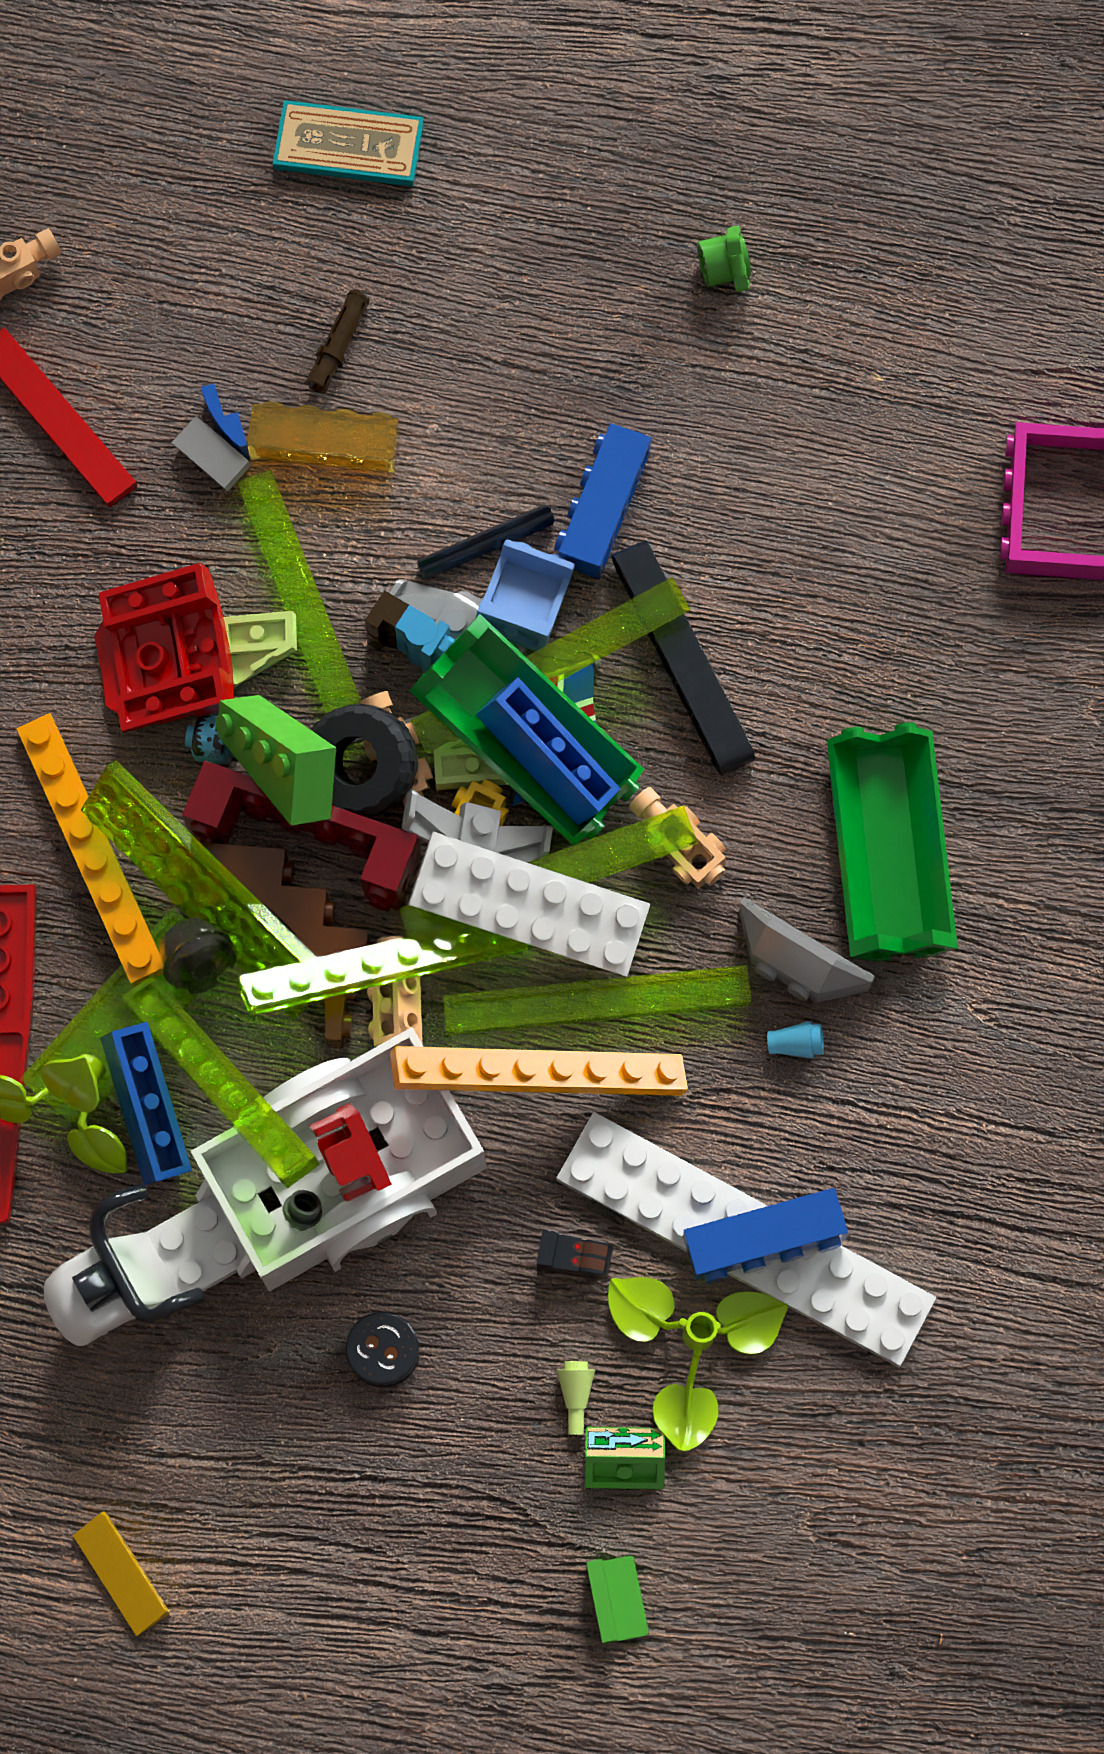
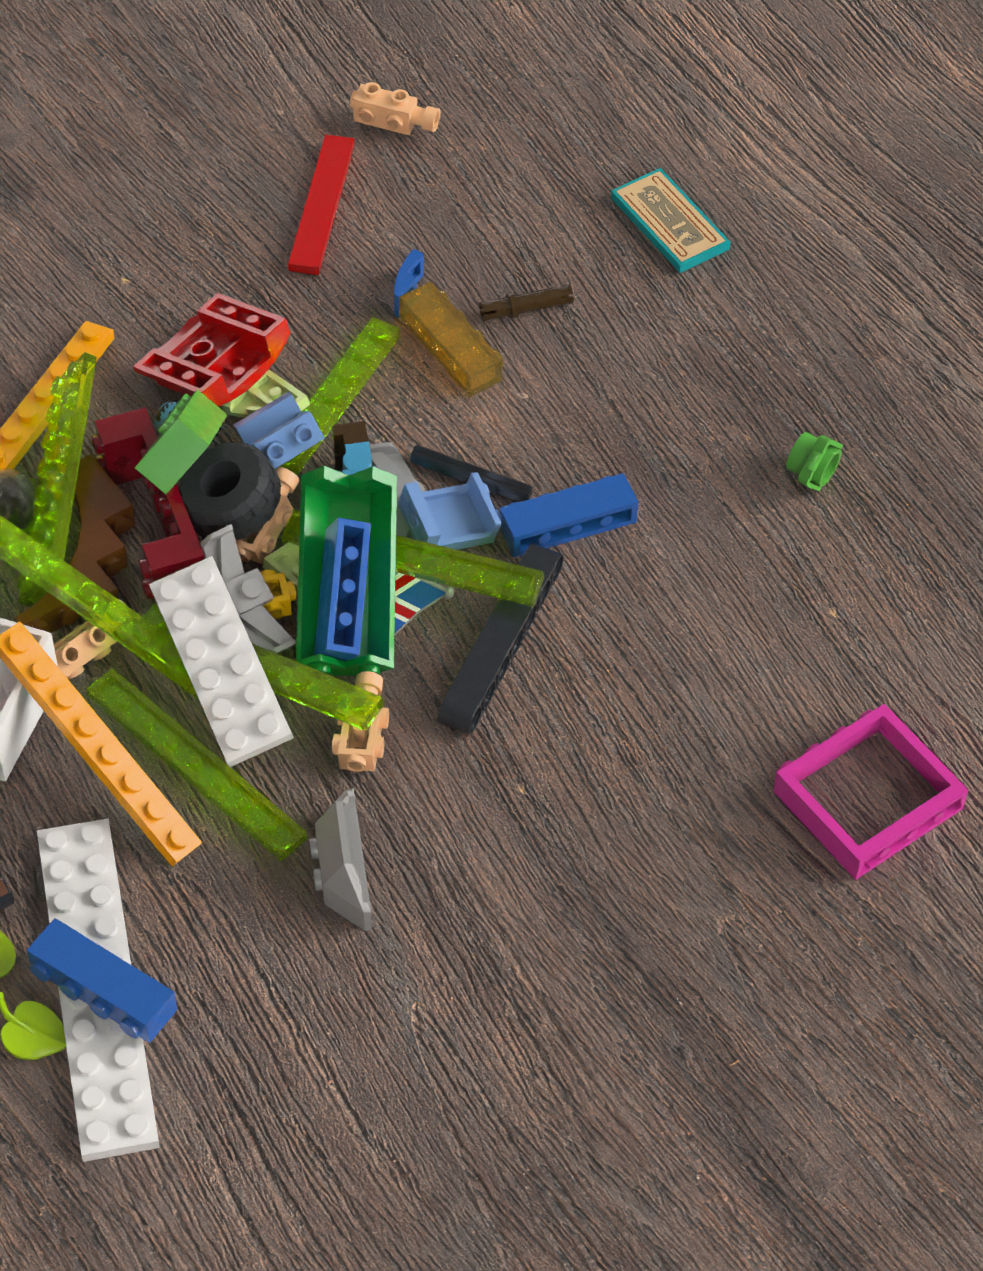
camera: 45 degrees right, 20 degrees down
(211, 453) = (377, 291): light grey slope -> none
(321, 667) = (280, 430): none -> medium blue panel
(797, 1040) = (283, 909): medium azure cone -> none
(891, 843) = (486, 856): green panel -> none

